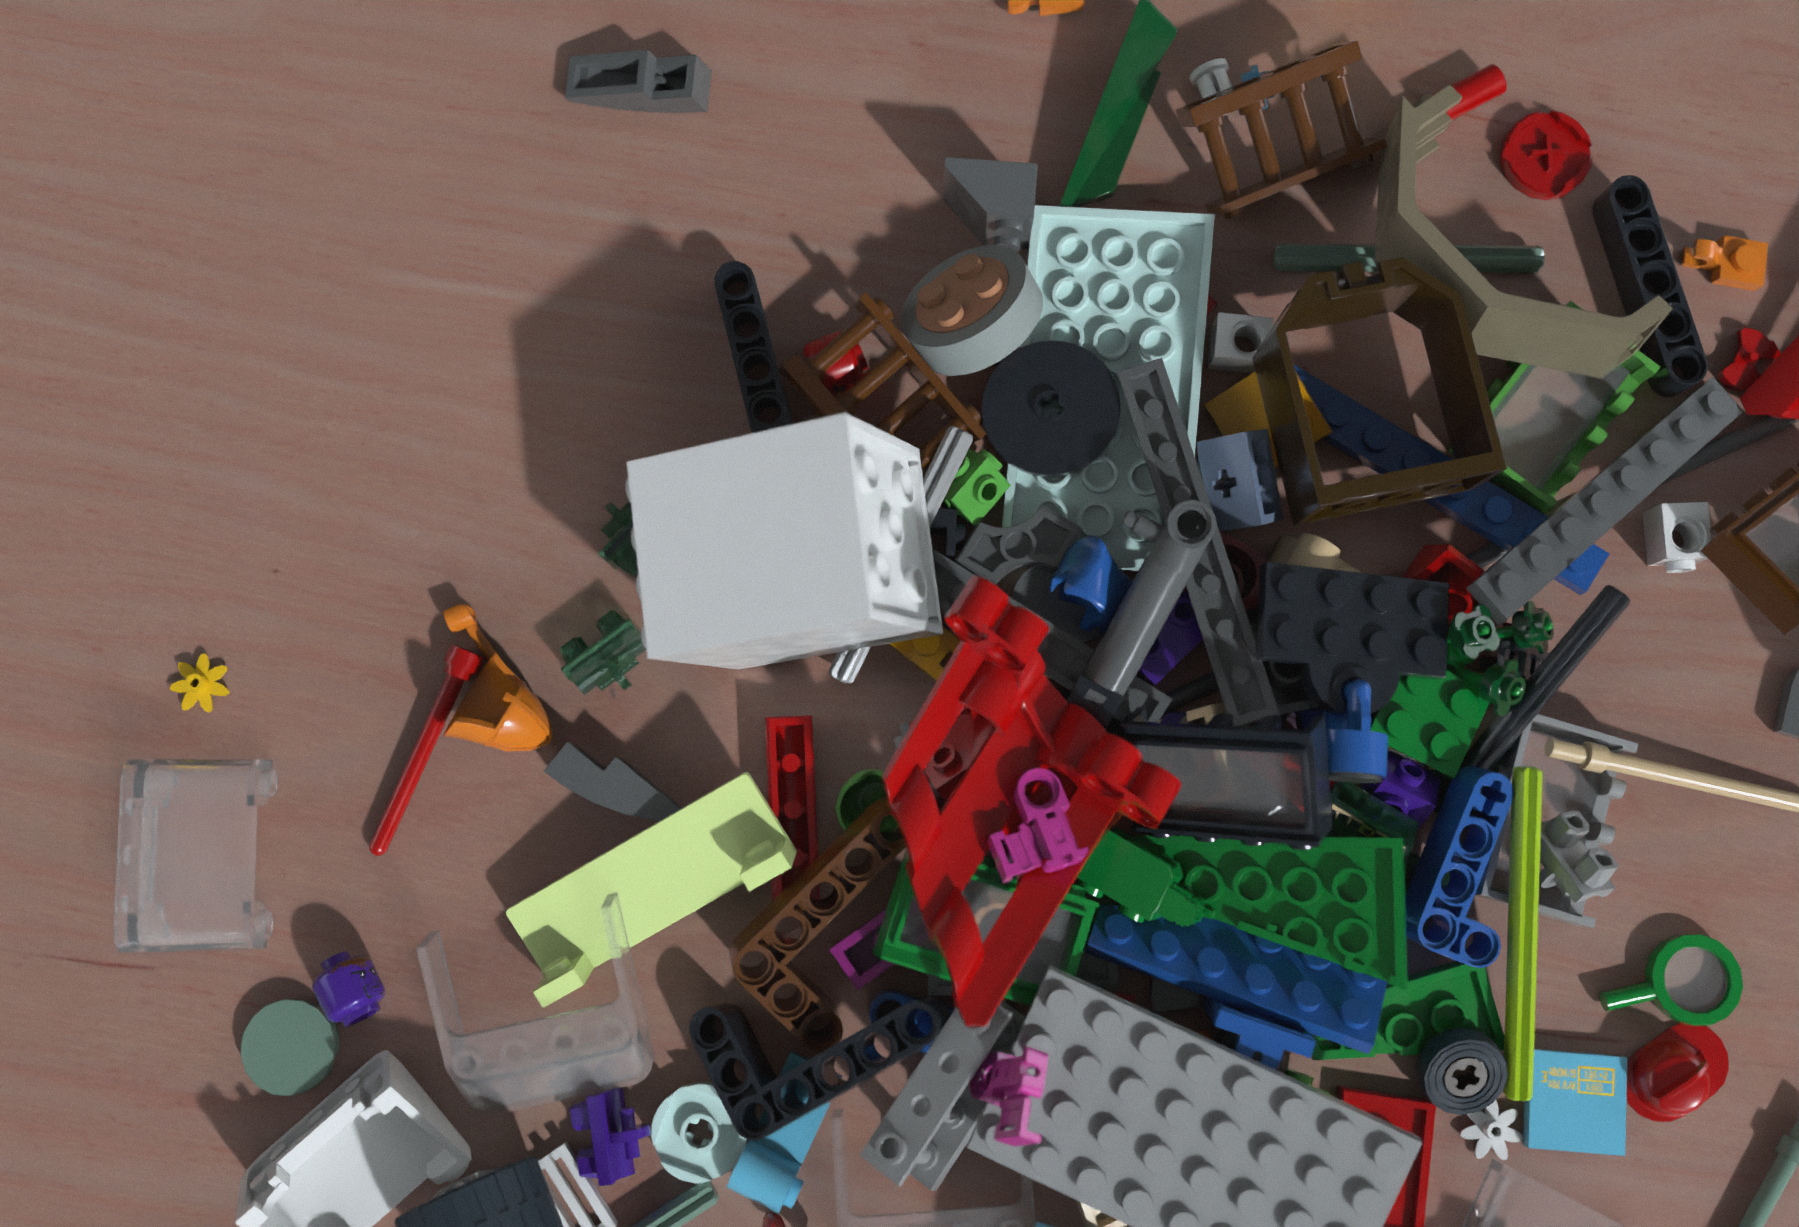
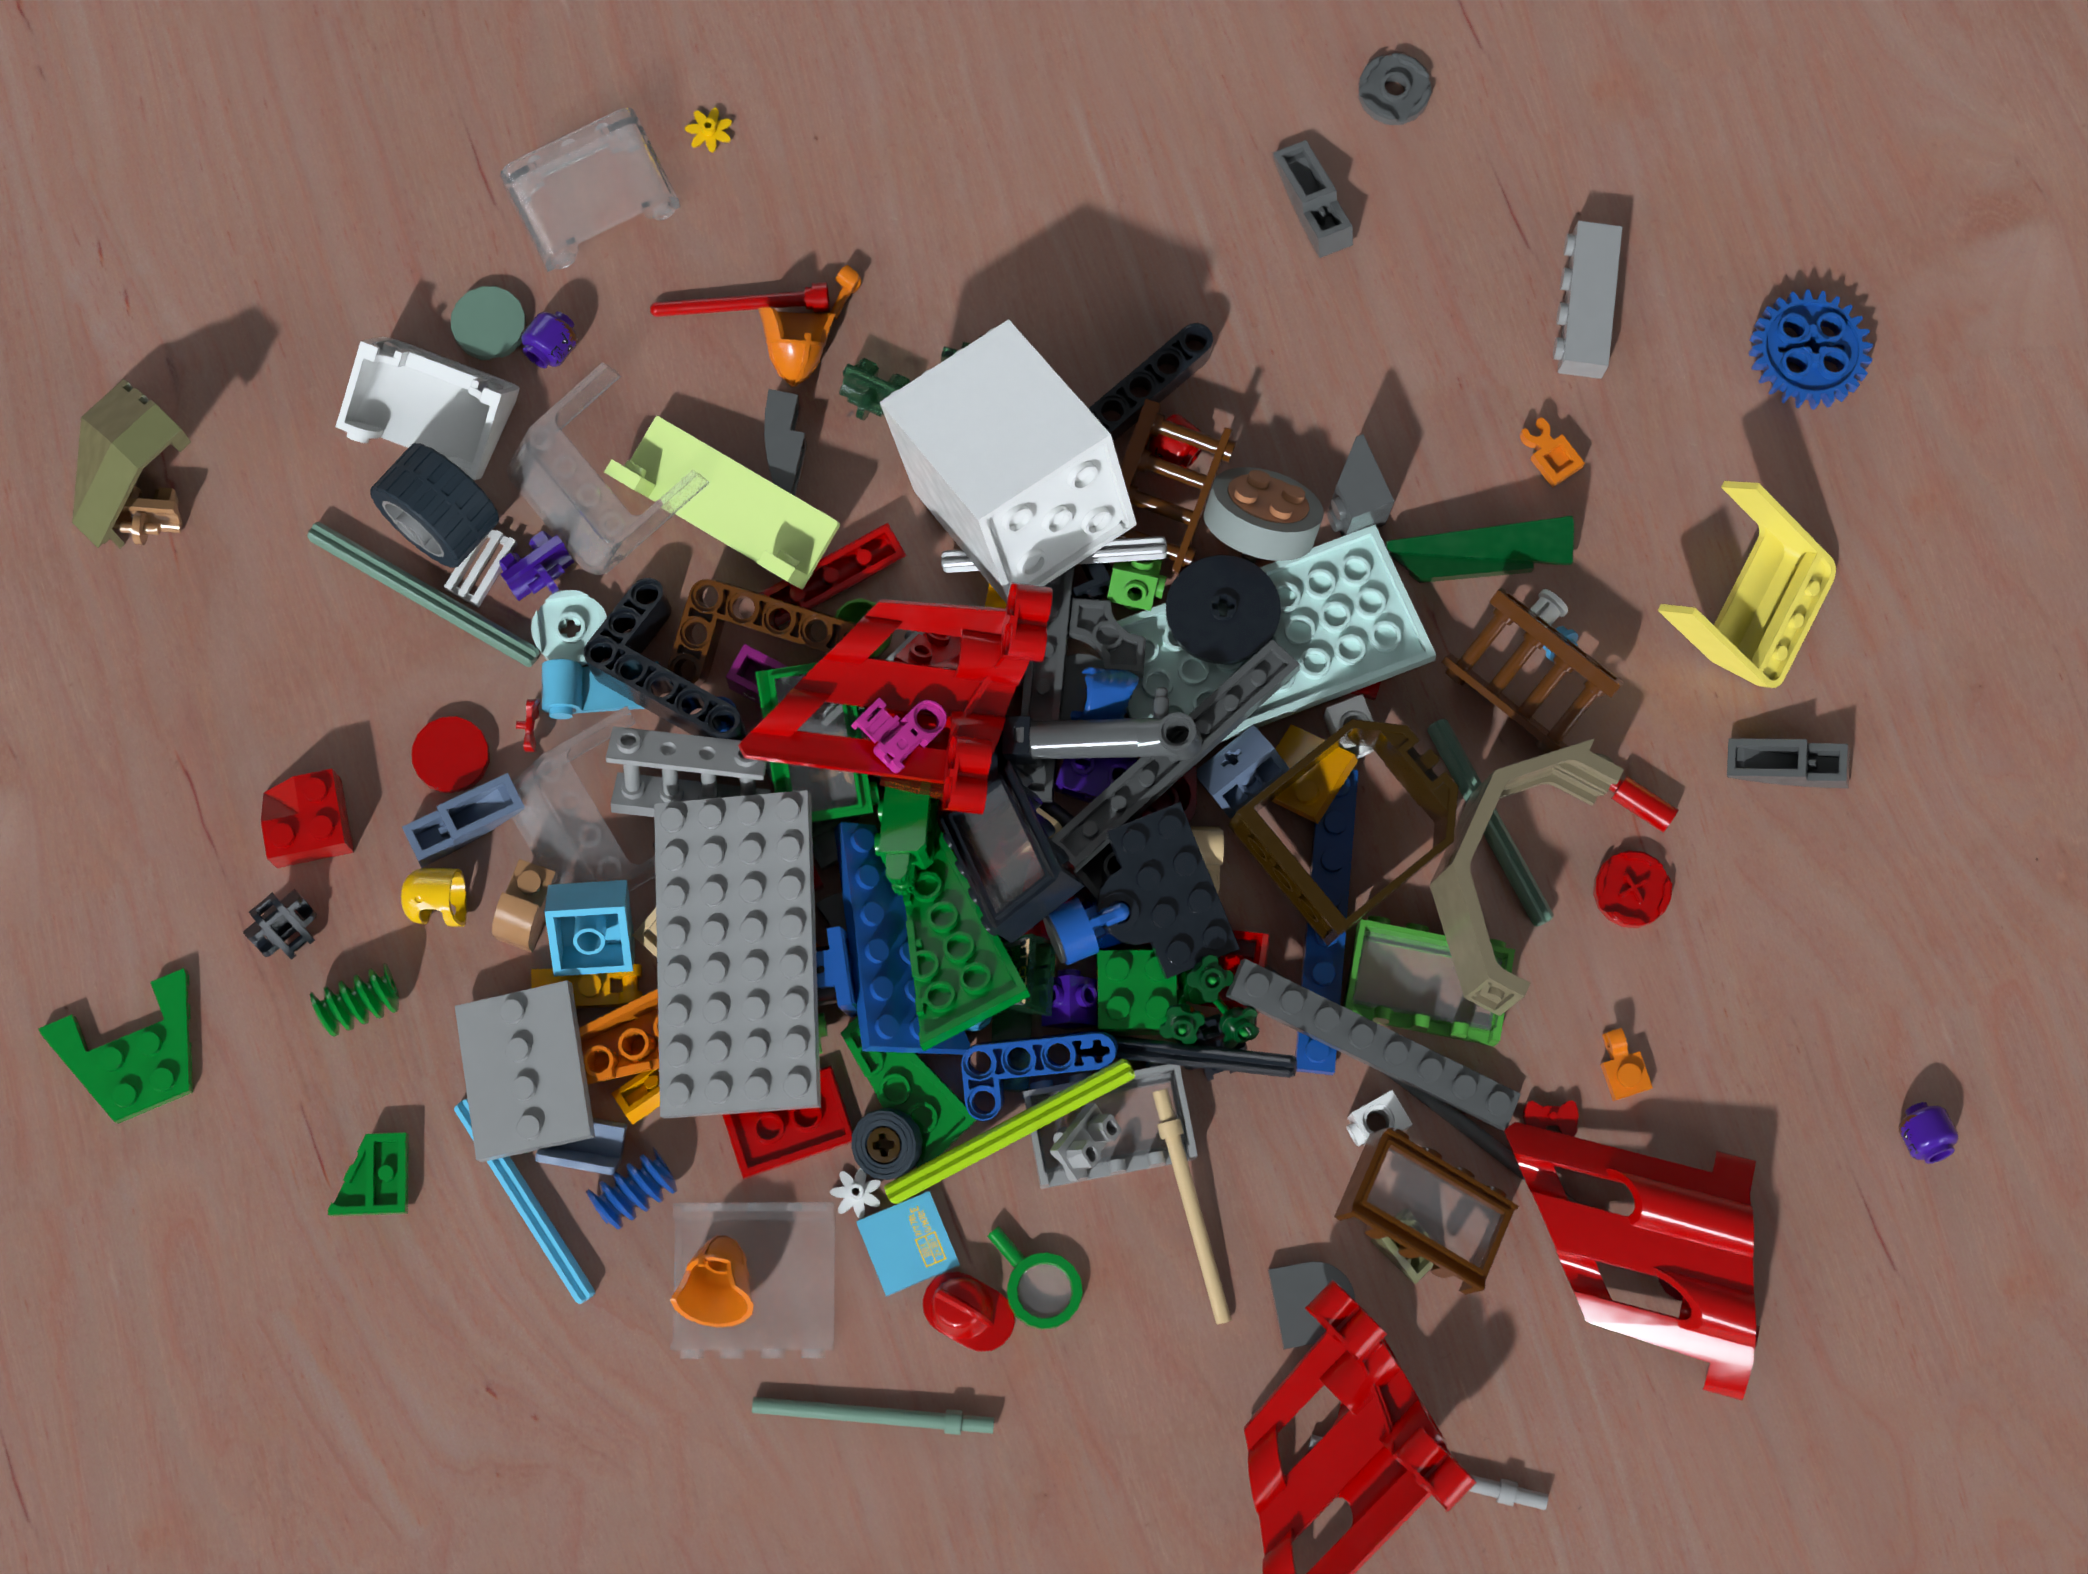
camera: 55 degrees right, 5 degrees down
(1005, 1083) = (709, 795): dark pink piece -> none
(1657, 267) = (1581, 1001): black beam -> none

